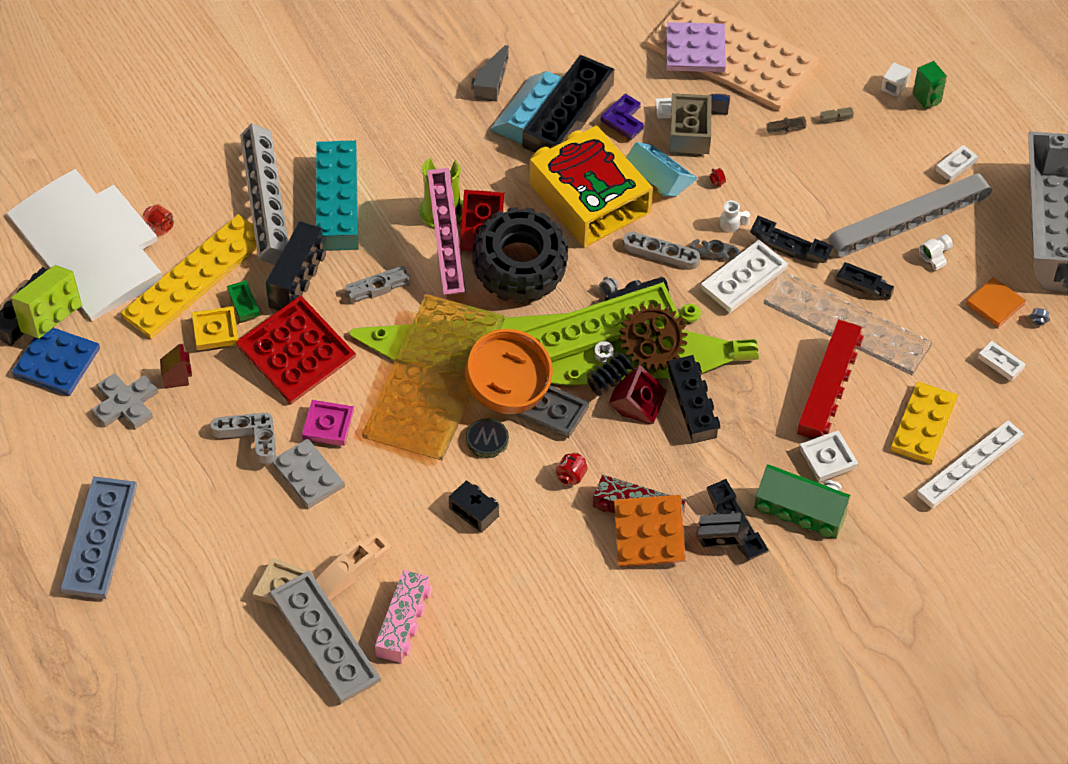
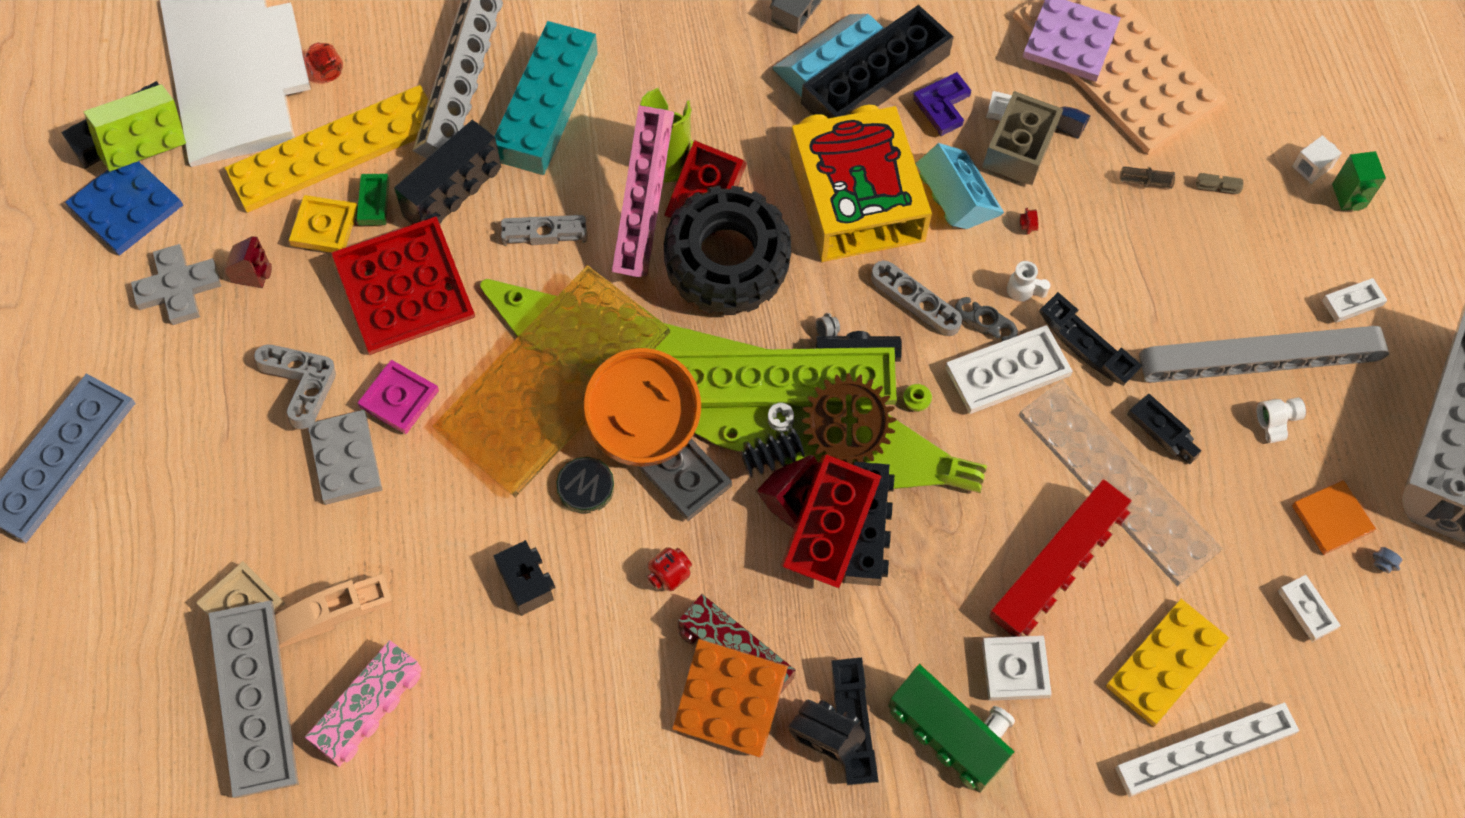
camera: 20 degrees right, 10 degrees up
(668, 402) = (830, 521): none -> red slope

